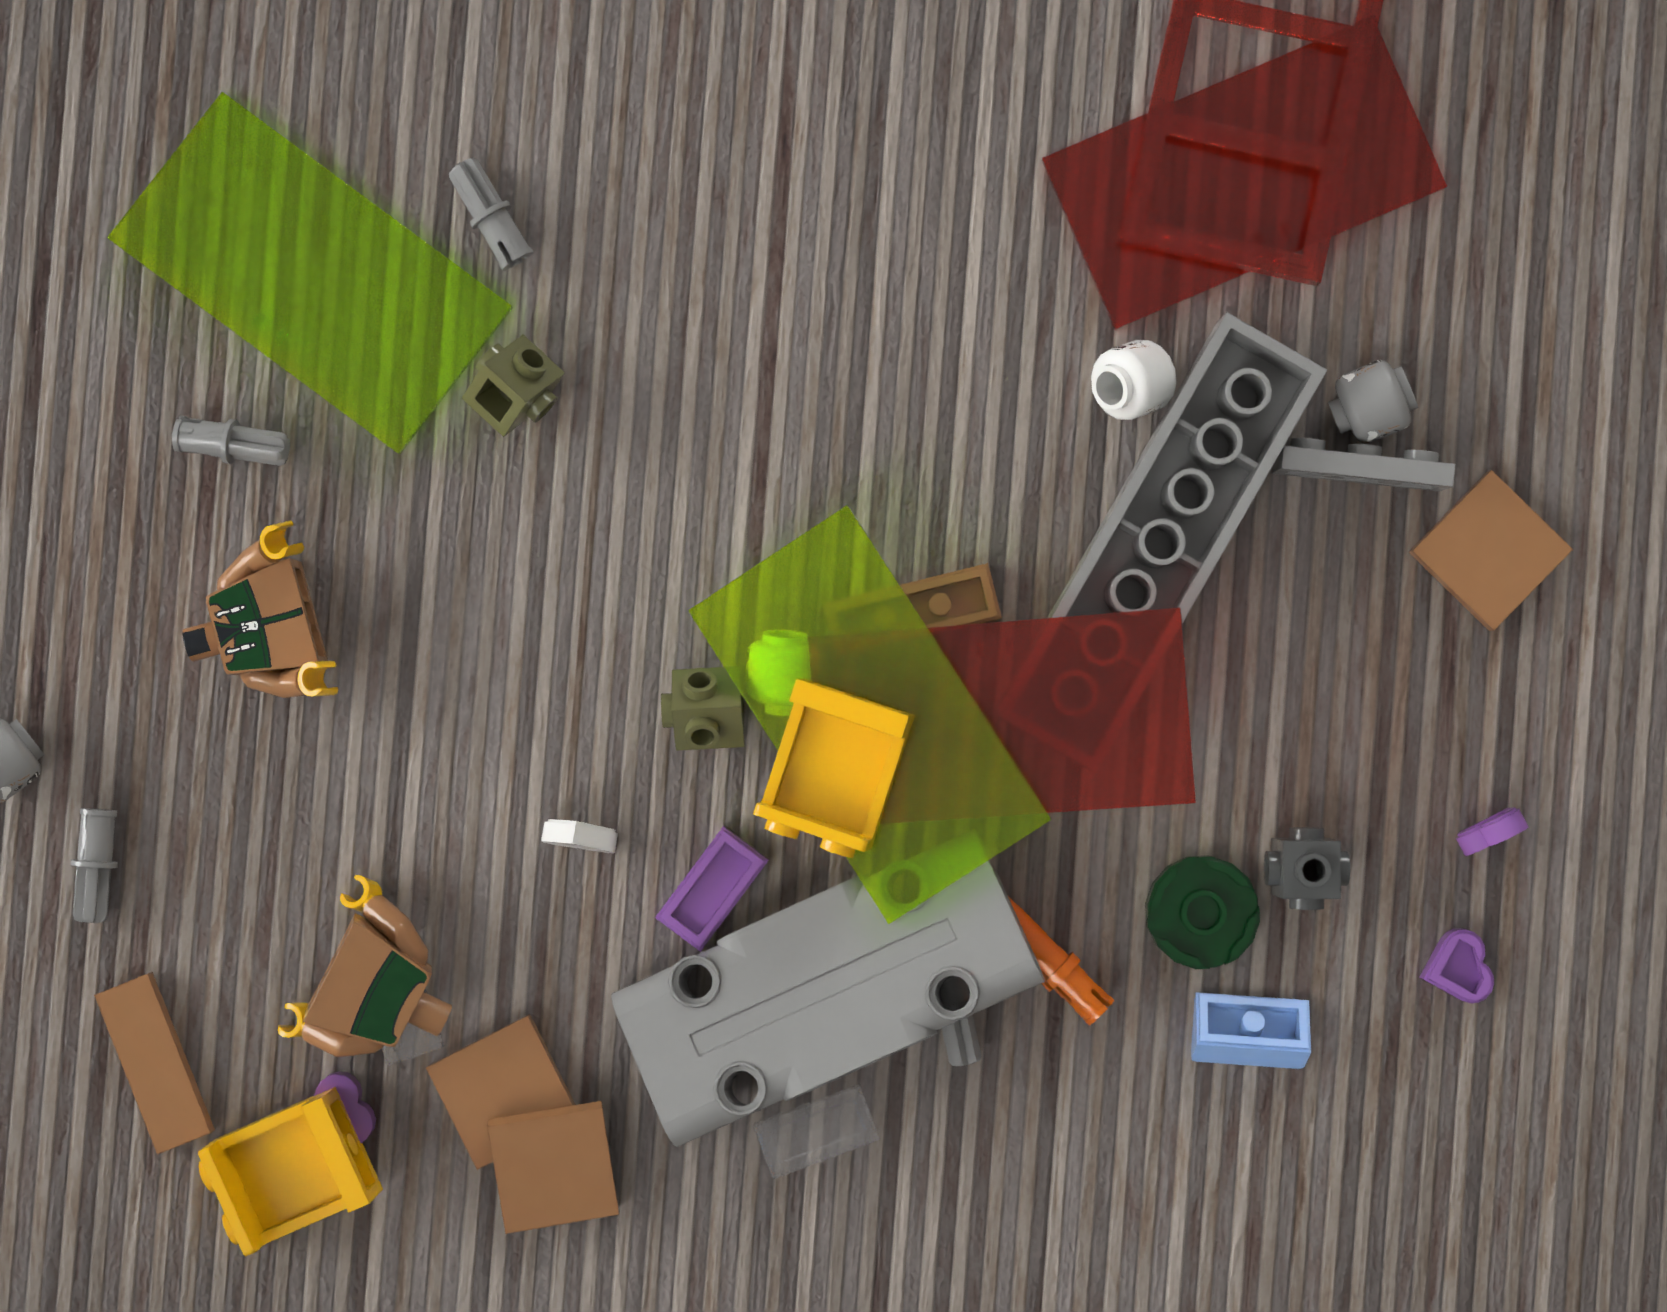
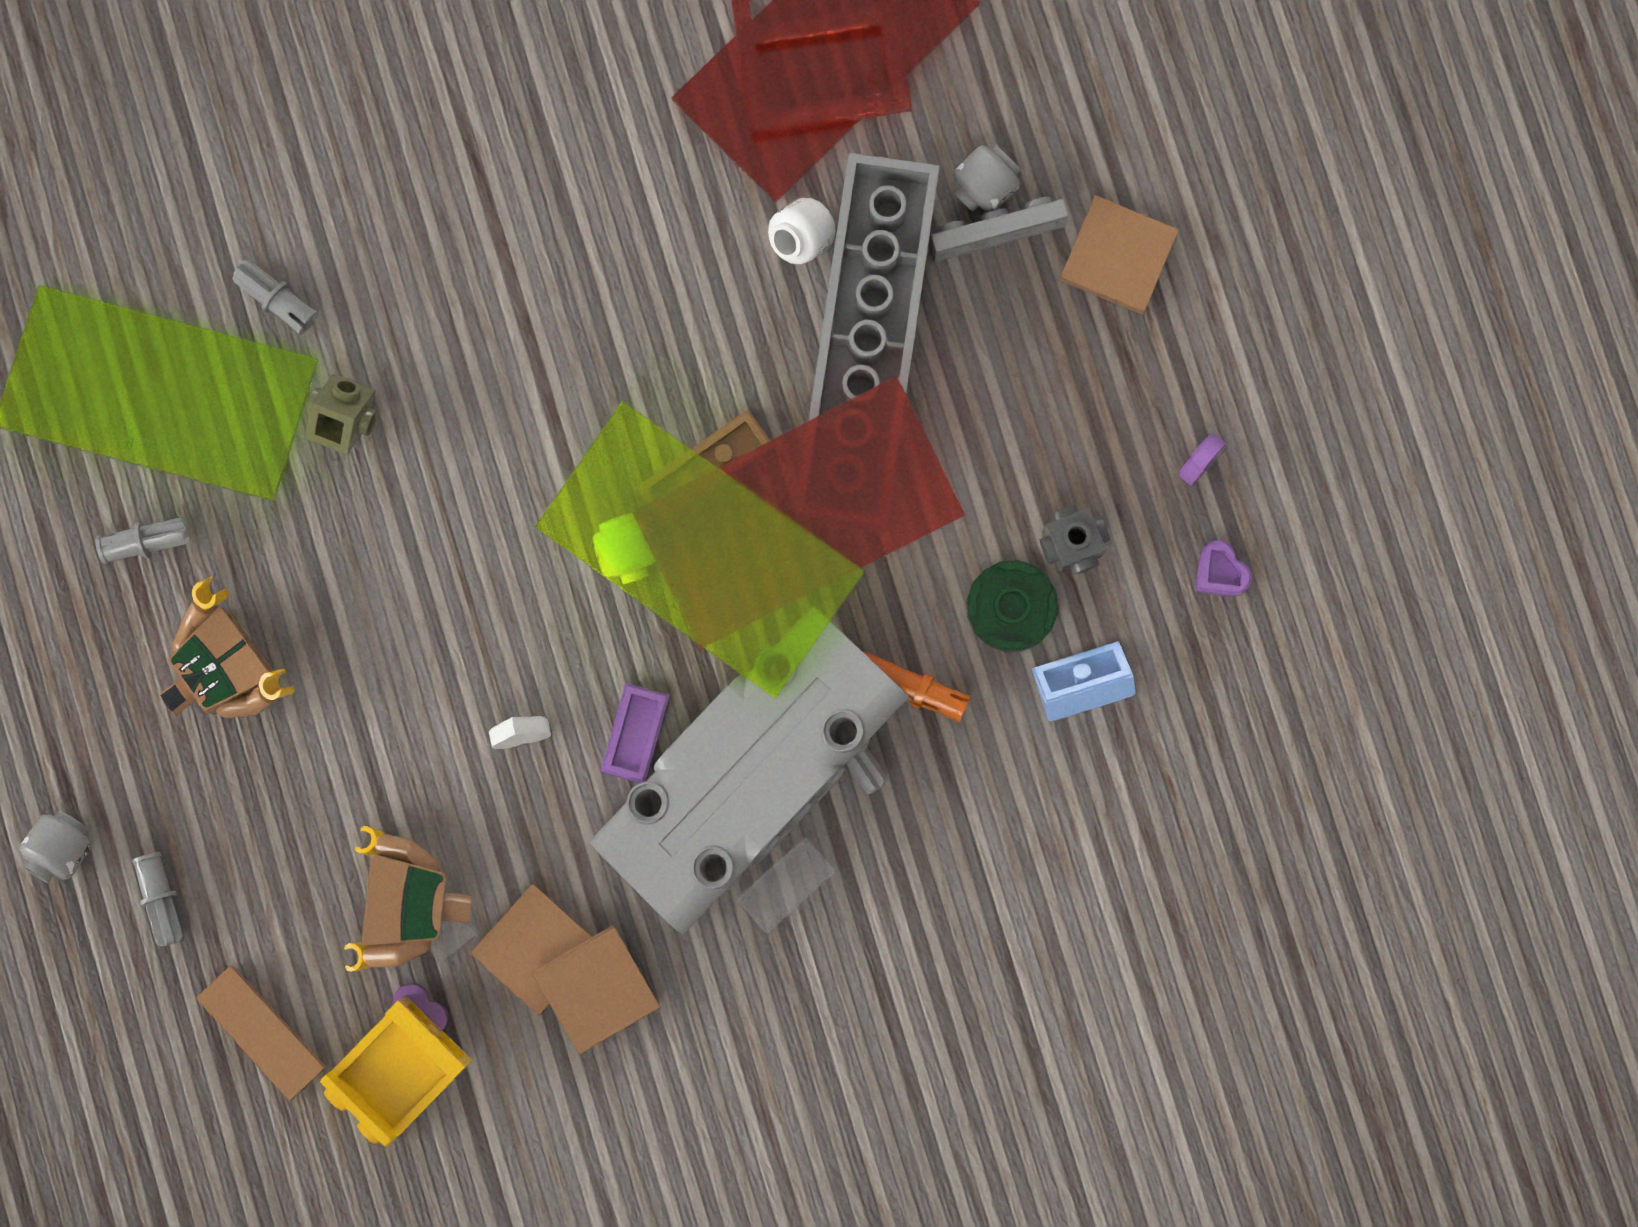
camera: 15 degrees left, 5 degrees down
(704, 709) = (576, 598): olive brick -> none
(834, 768) = (688, 595): yellow panel -> none

